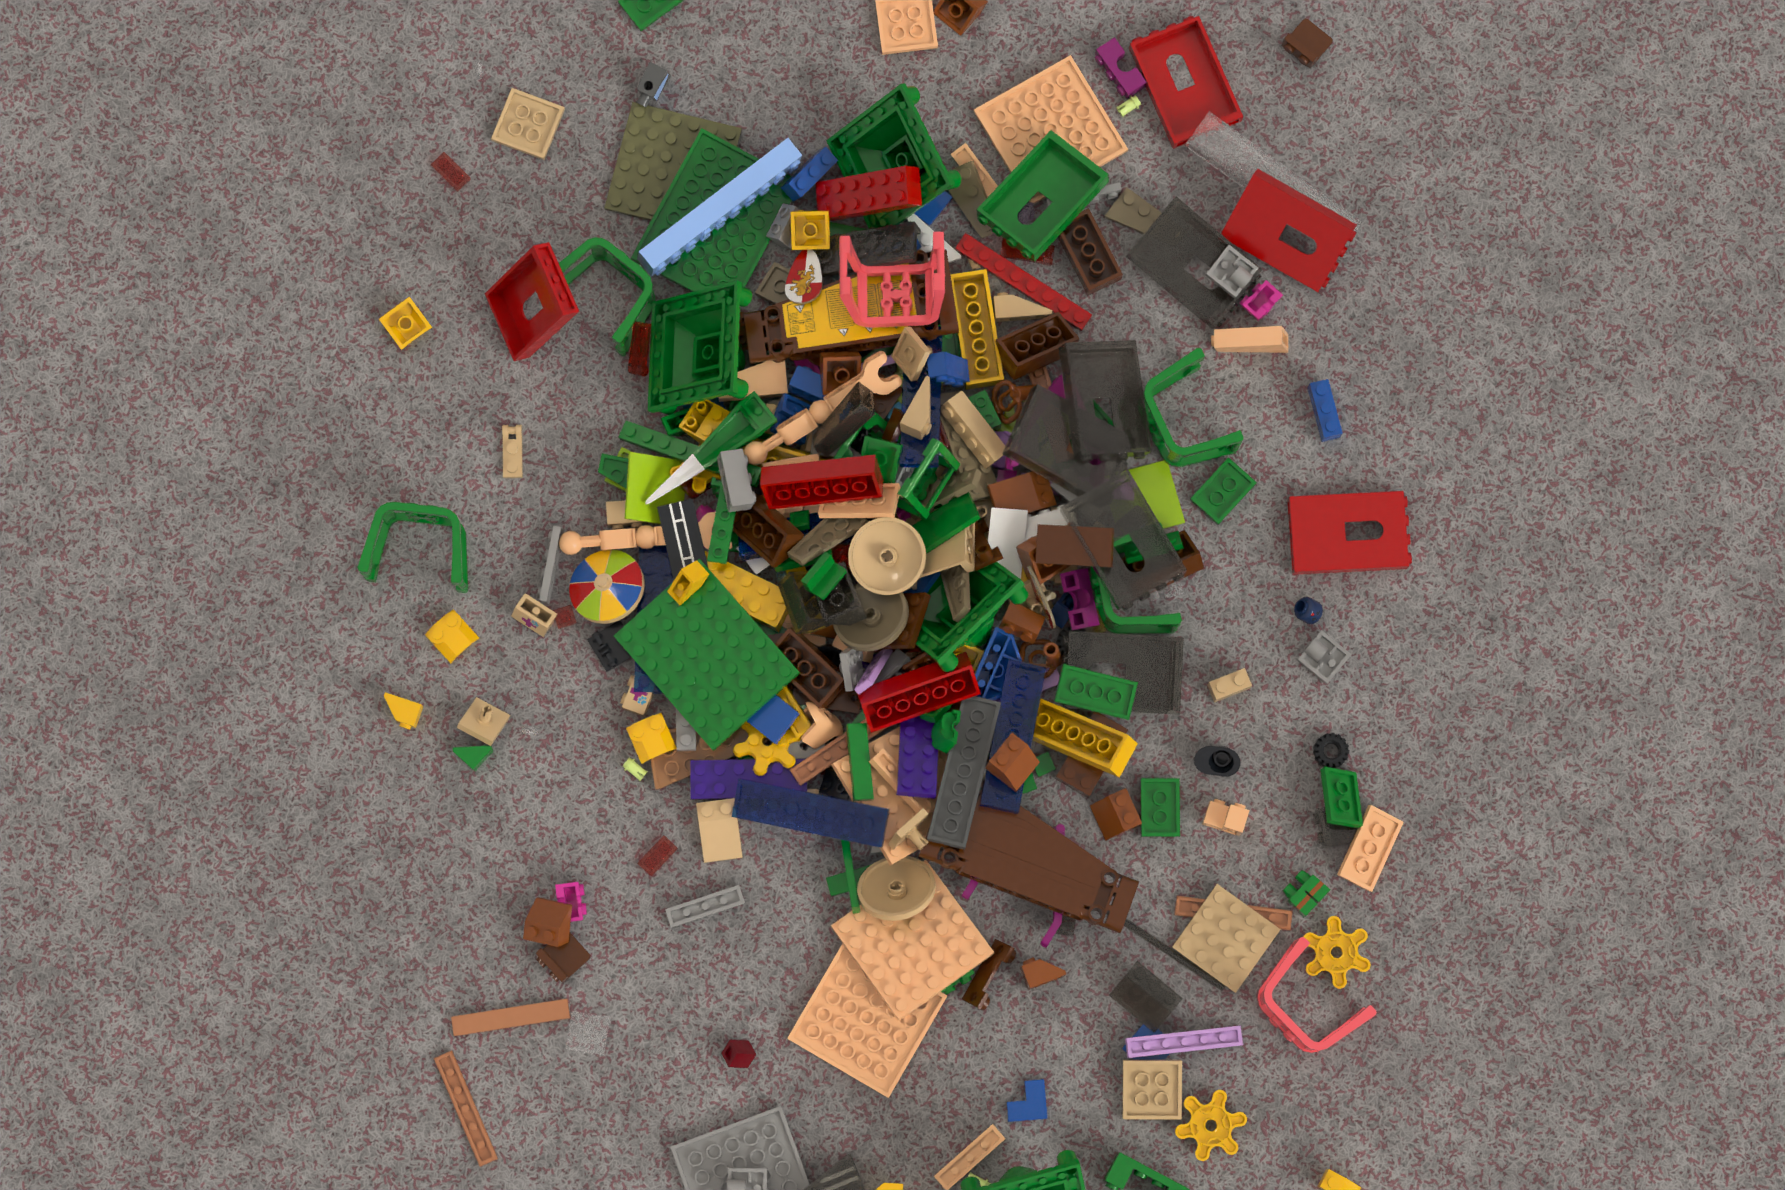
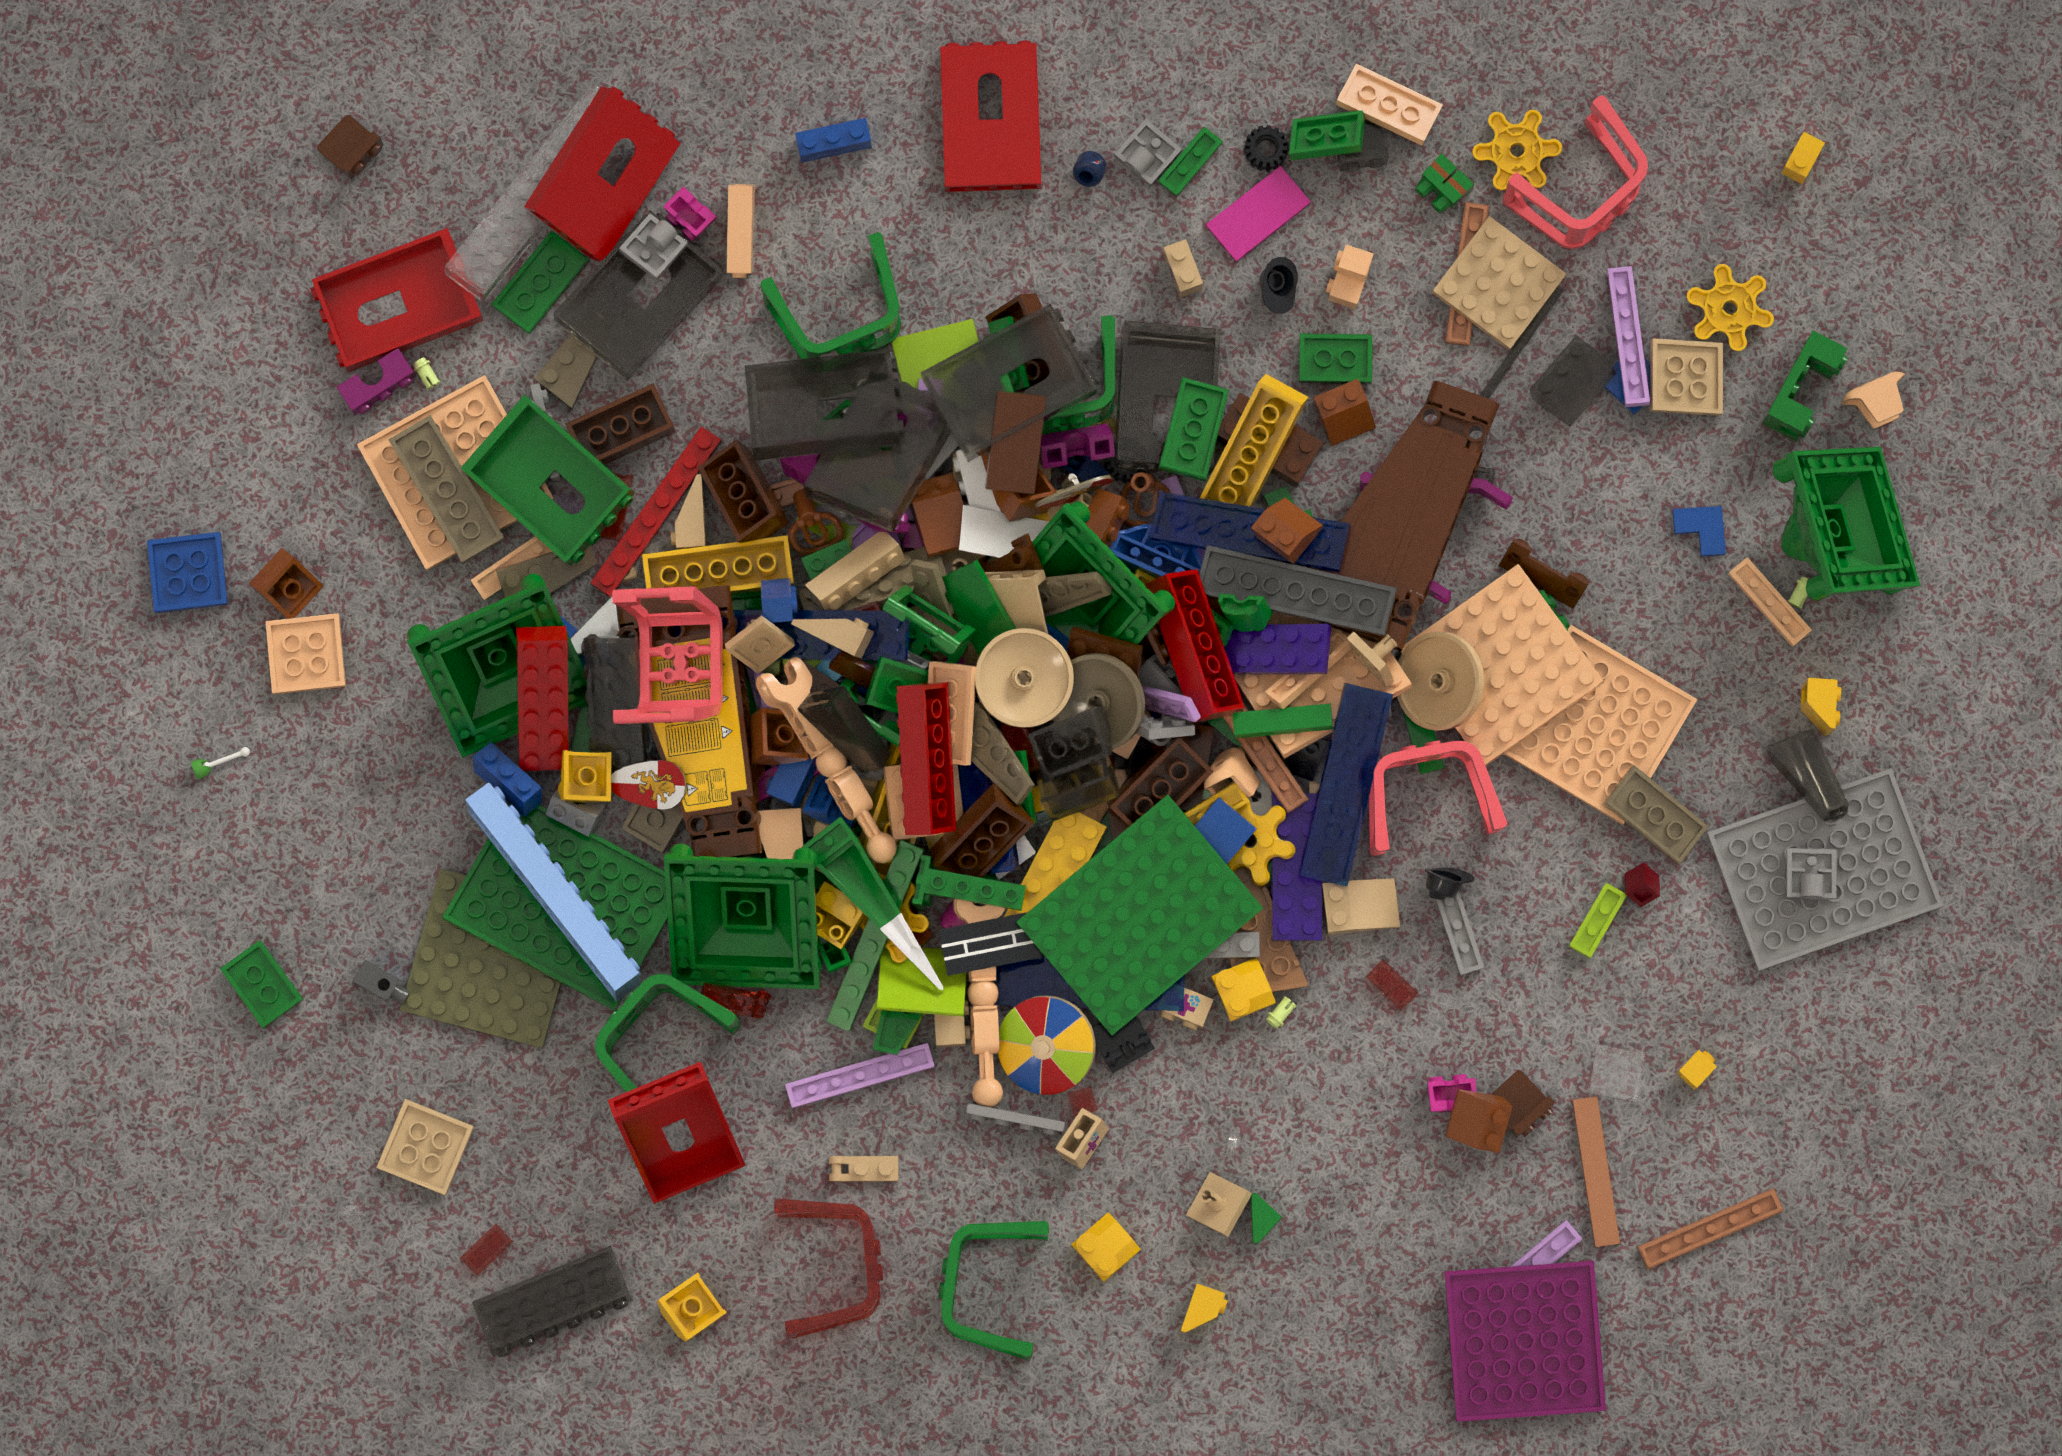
camera: 85 degrees left, 0 degrees up
(377, 960) = (1525, 1341): none -> magenta plate
(410, 220) = (552, 1302): none -> clear smoke bracket
(437, 452) = (809, 1209): none -> clear red windscreen
(440, 970) = (1551, 1247): none -> lavender tile
(583, 446) = (859, 1075): none -> lavender plate
(591, 1097) = (1697, 1068): none -> yellow brick
(688, 582) = (1049, 934): yellow slope -> none
(709, 1018) = (1597, 920): none -> lime plate
(736, 480) = (919, 870): light grey brick -> none
(738, 896) = (1446, 882): none -> black piece
(794, 1064) = (1655, 815): none -> dark tan tile
(800, 519) = (968, 792): green tile -> none
(823, 576) = (1049, 758): green panel -> none
(835, 864) = (1488, 802): none -> coral windscreen
(850, 876) = (1420, 739): green tile -> none
(1034, 121) = (446, 489): none -> dark tan plate
(1039, 972) = (1545, 509): dark orange slope -> none
(1203, 189) = (540, 282): none -> green tile
(1223, 491) = (934, 269): green plate -> none
(1277, 745) = (1258, 214): none -> dark pink tile
(1317, 690) = (1190, 161): none -> green plate

